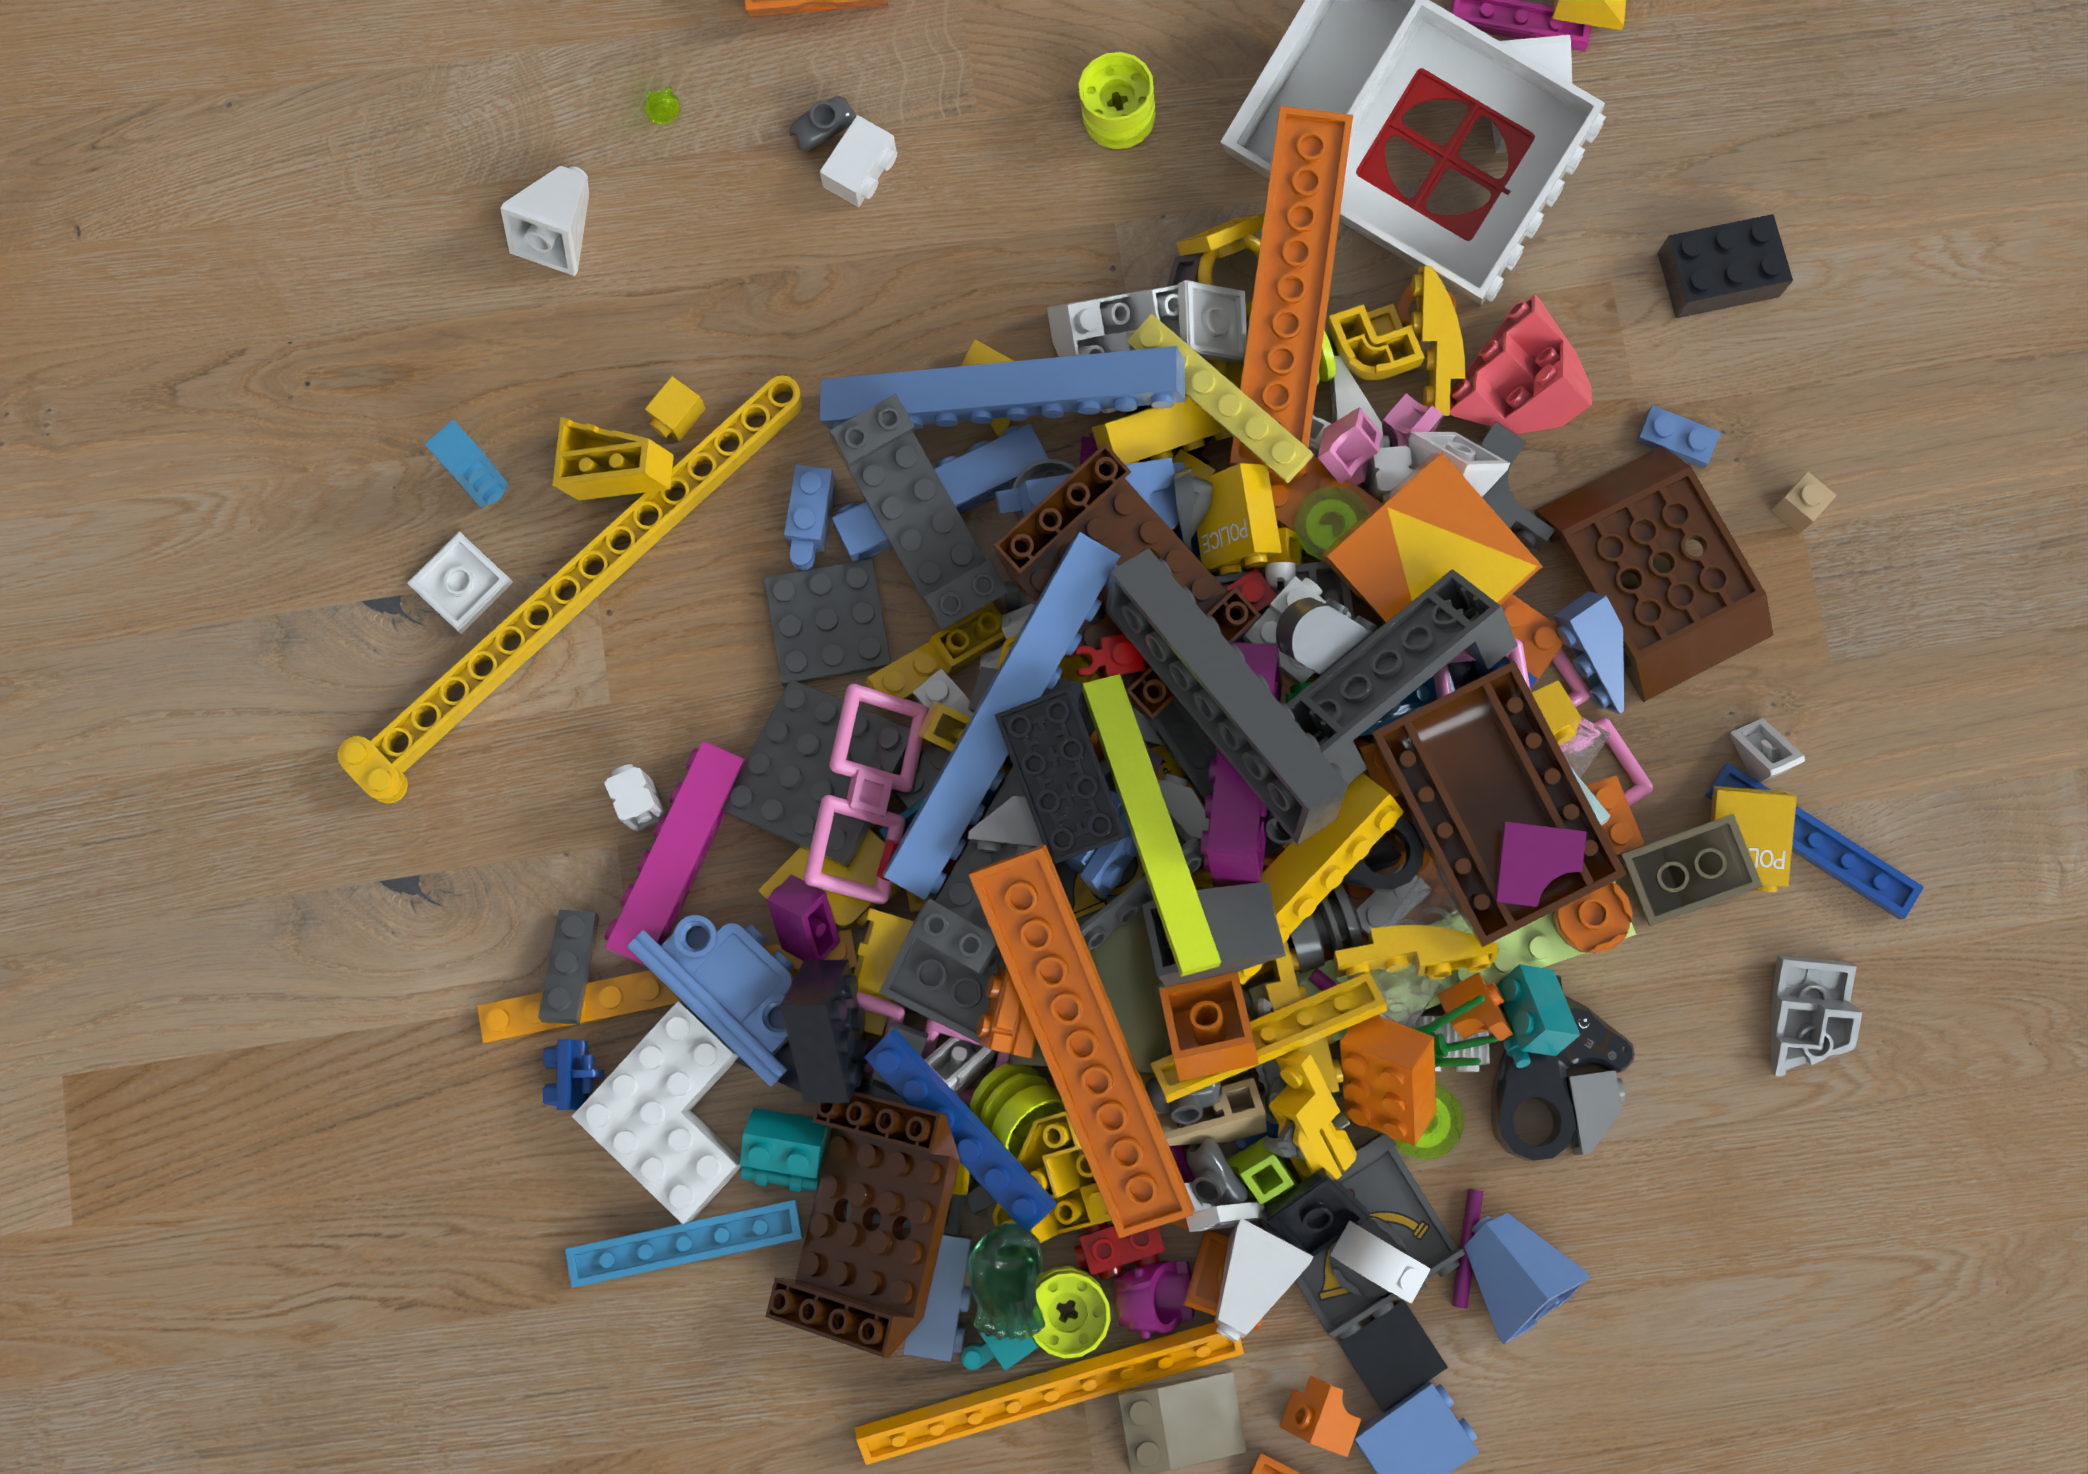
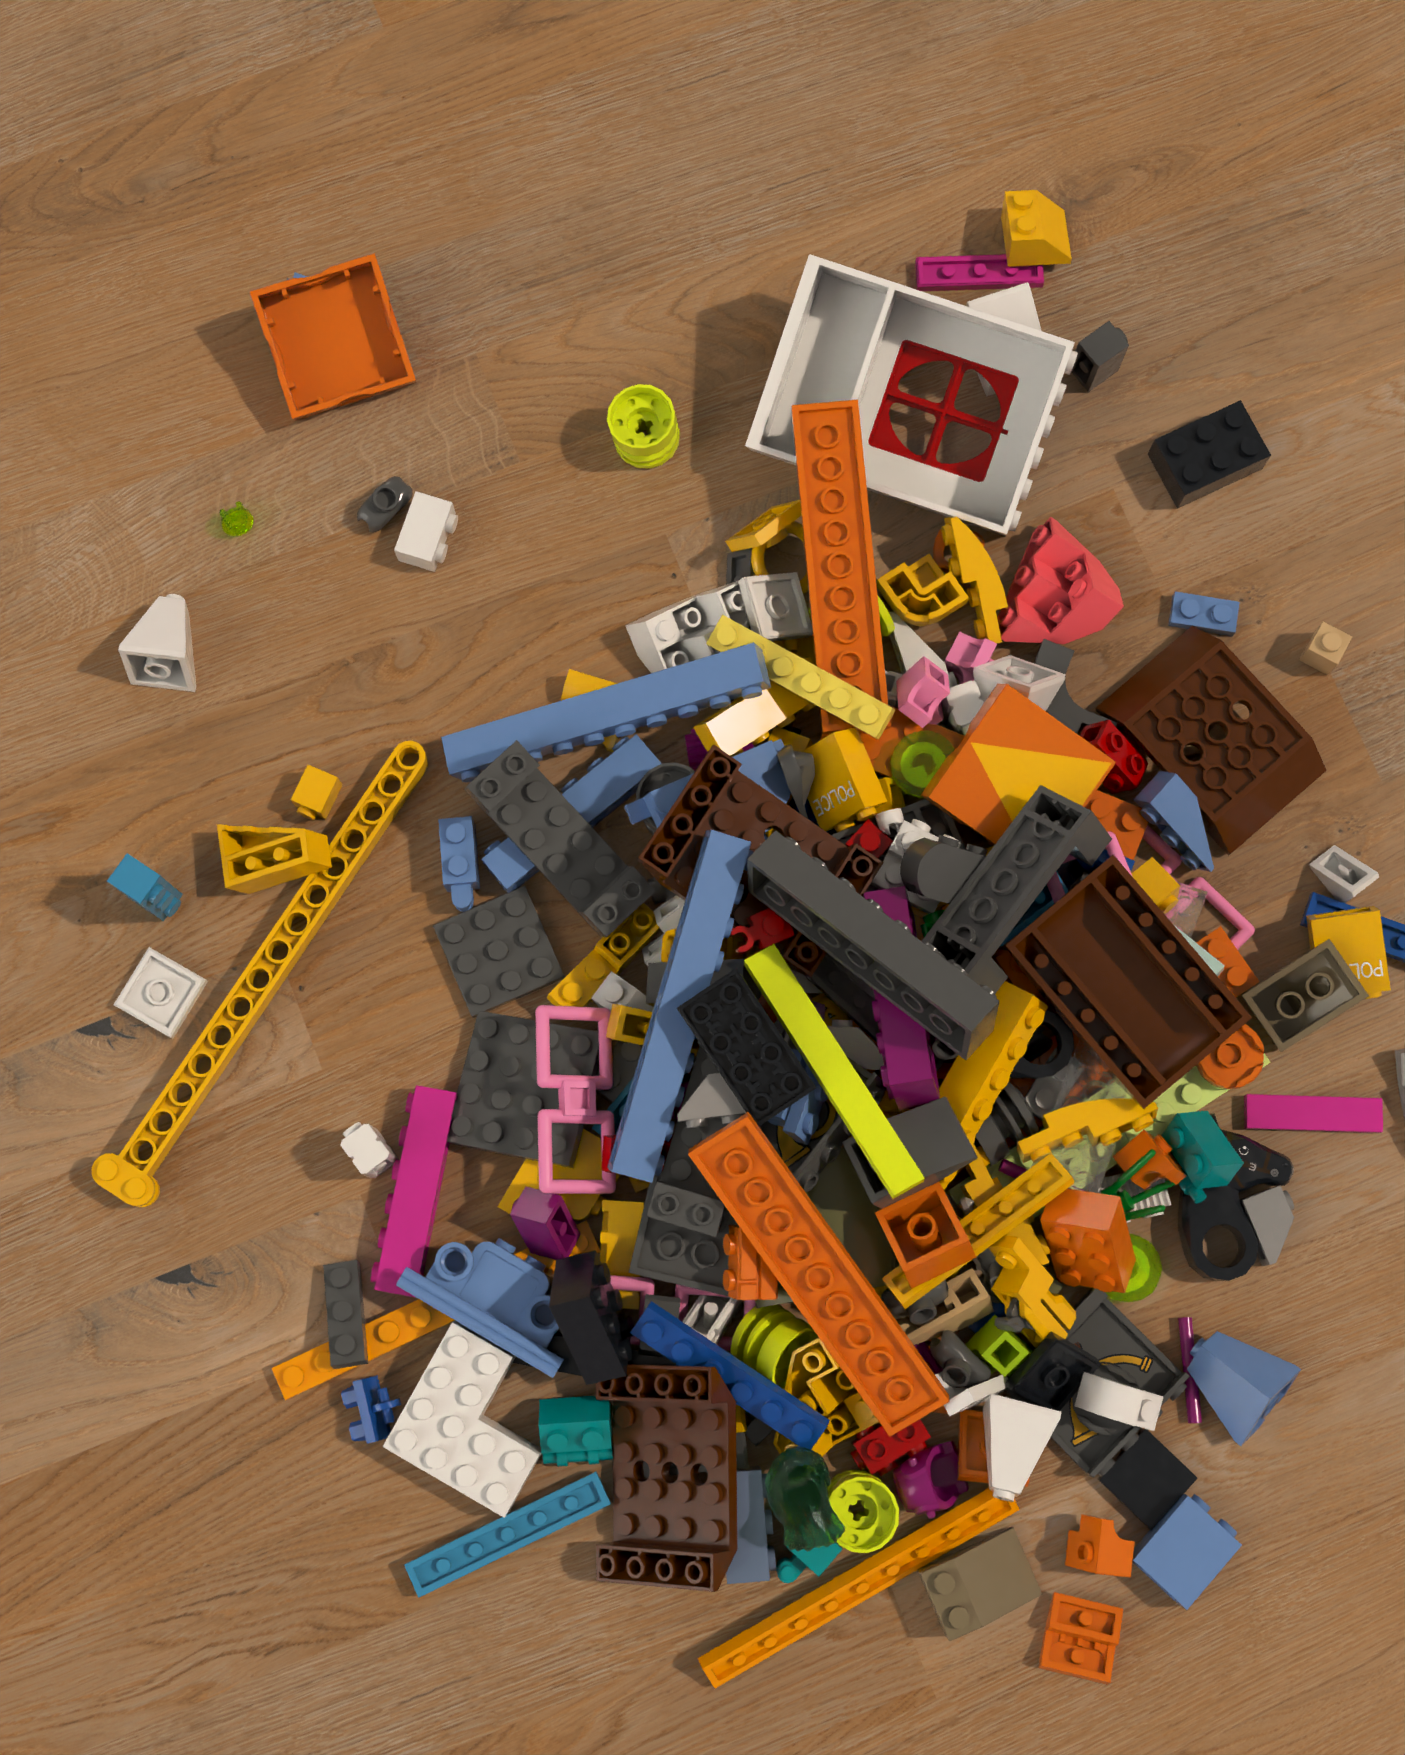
camera: 15 degrees left, 0 degrees up
(1533, 858) = (1169, 1022): magenta tile -> none
(1556, 578) = (1129, 763): none -> red brick
(1629, 133) = (1099, 355): none -> dark grey brick
(1670, 1002) = (1313, 1113): none -> dark pink tile

